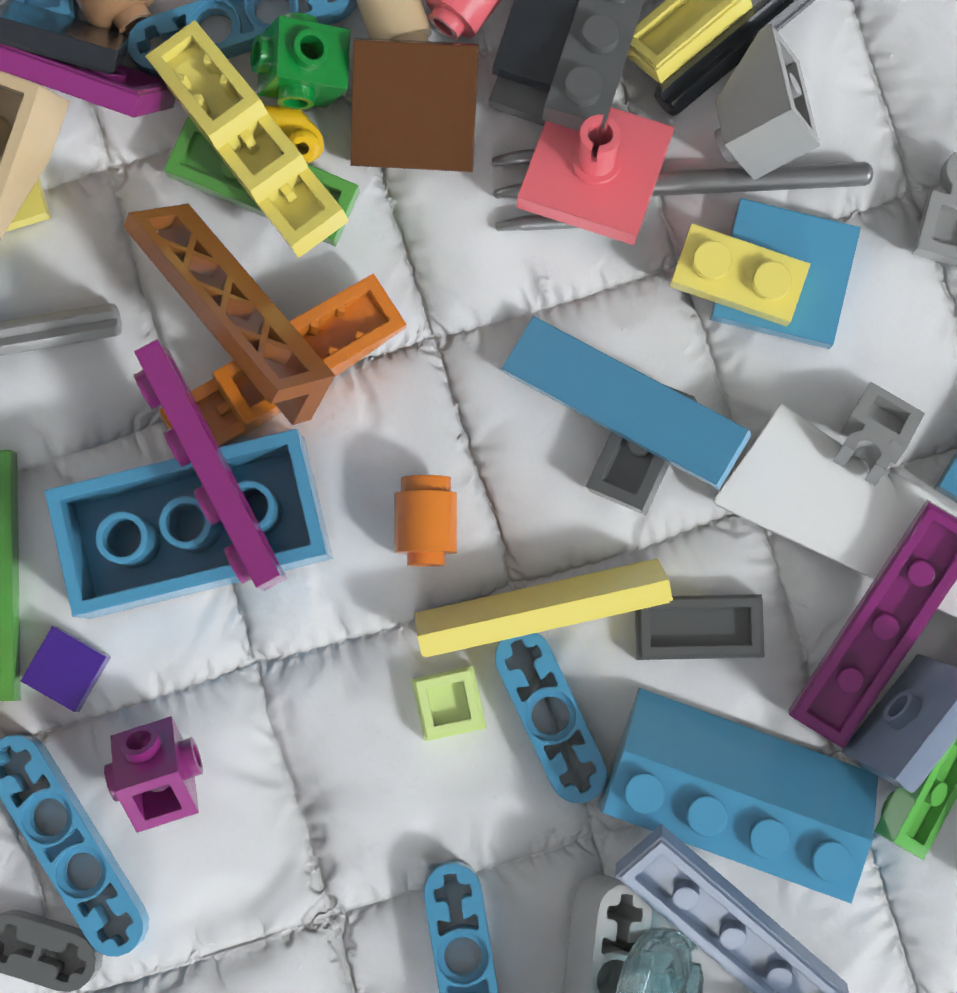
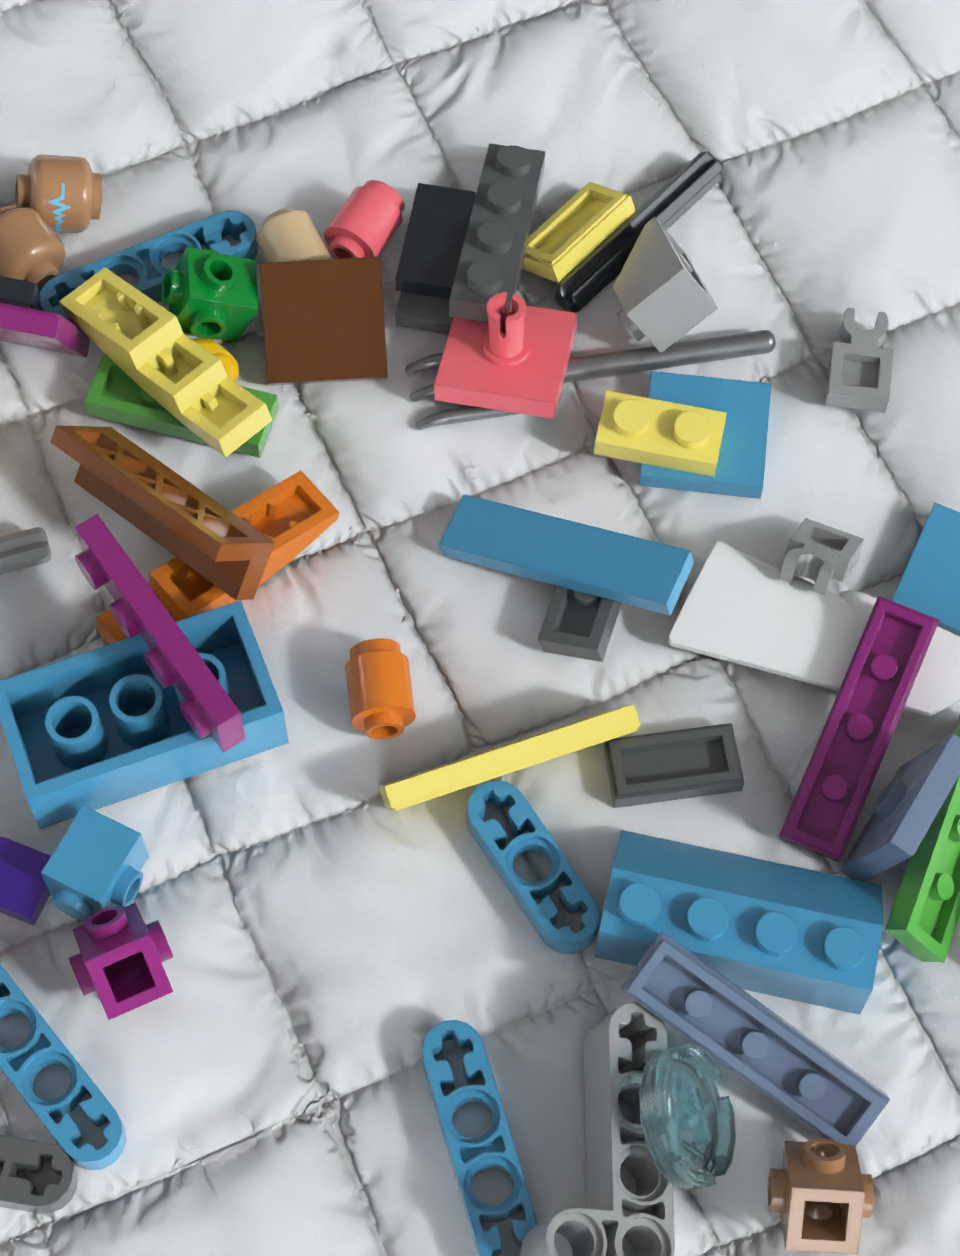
camera: 10 degrees left, 20 degrees down
(137, 672) = (95, 865): none -> dark azure brick
(448, 703) = (425, 868): yellowish green tile -> none

